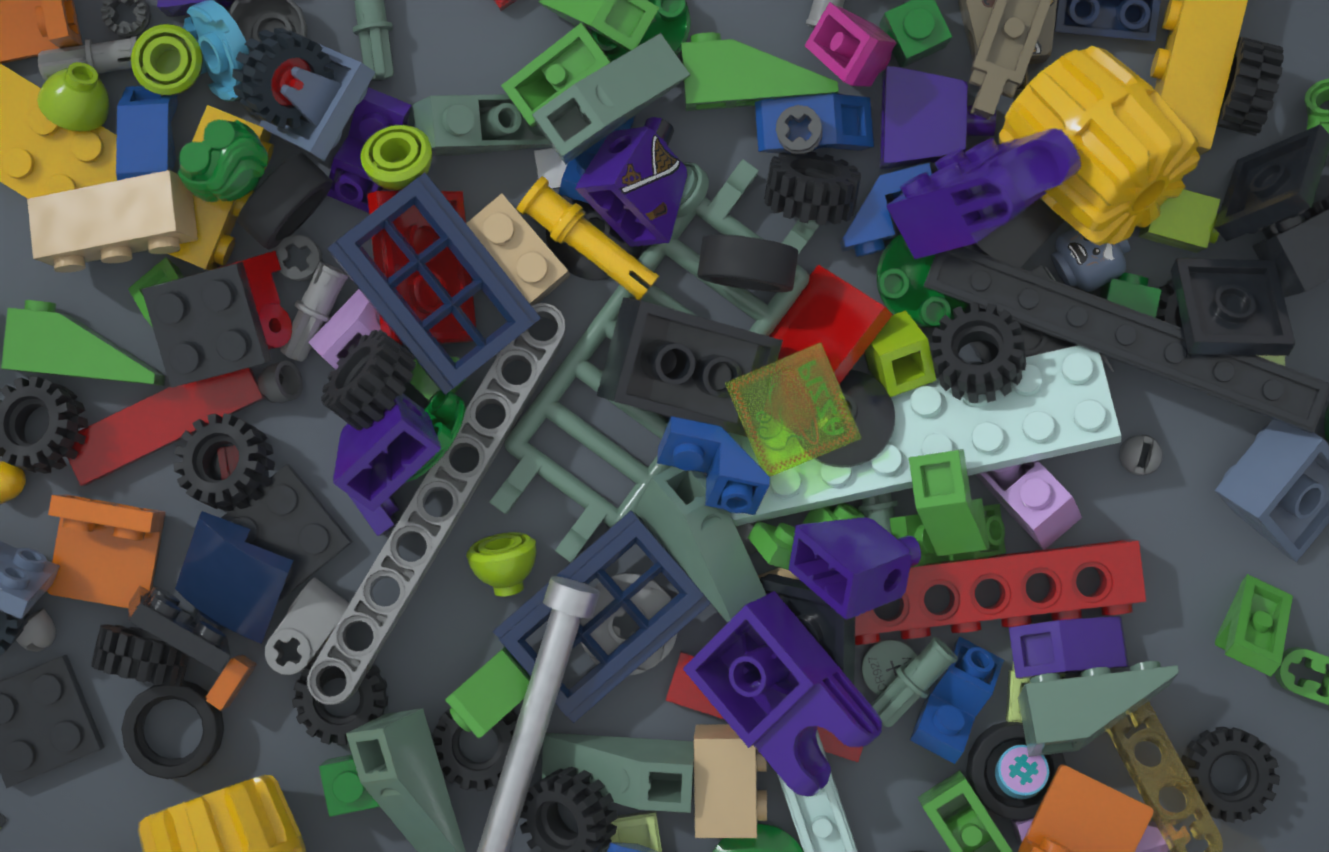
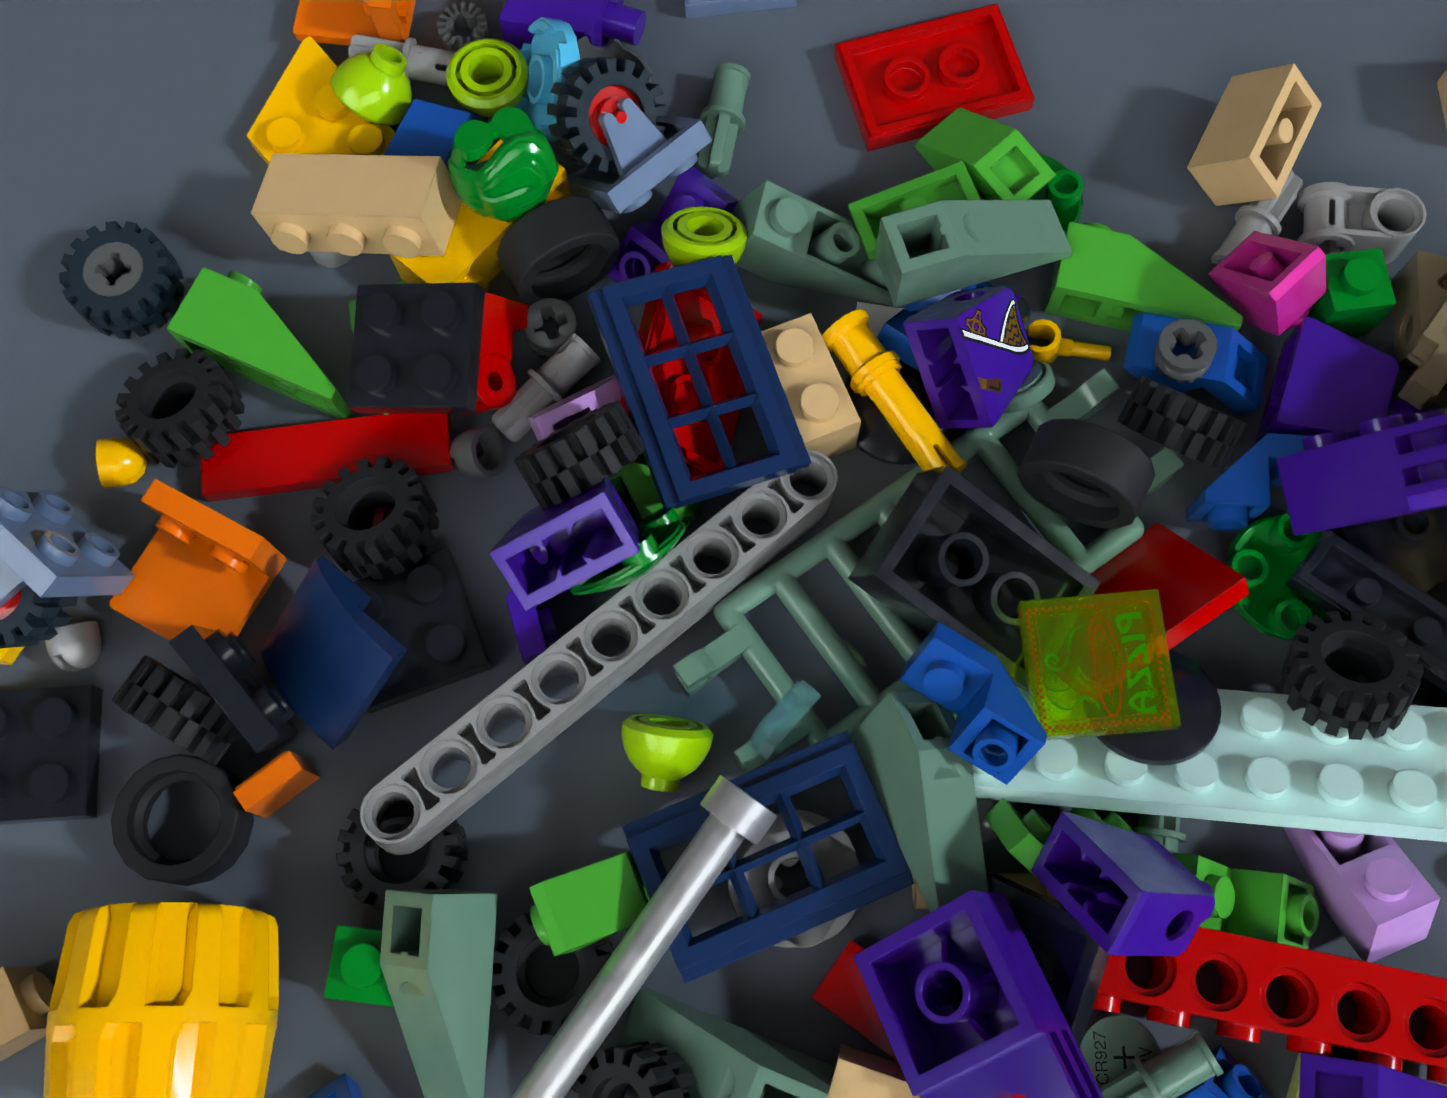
camera: 20 degrees right, 15 degrees down
(309, 621) = (386, 743): light grey piece -> none
(582, 518) = (783, 718): none -> clear light blue tile
(710, 139) = (1061, 346): none -> yellow hand
(900, 356) = (1242, 652): lime brick -> none
(945, 503) = (1270, 851): bright green slope -> none

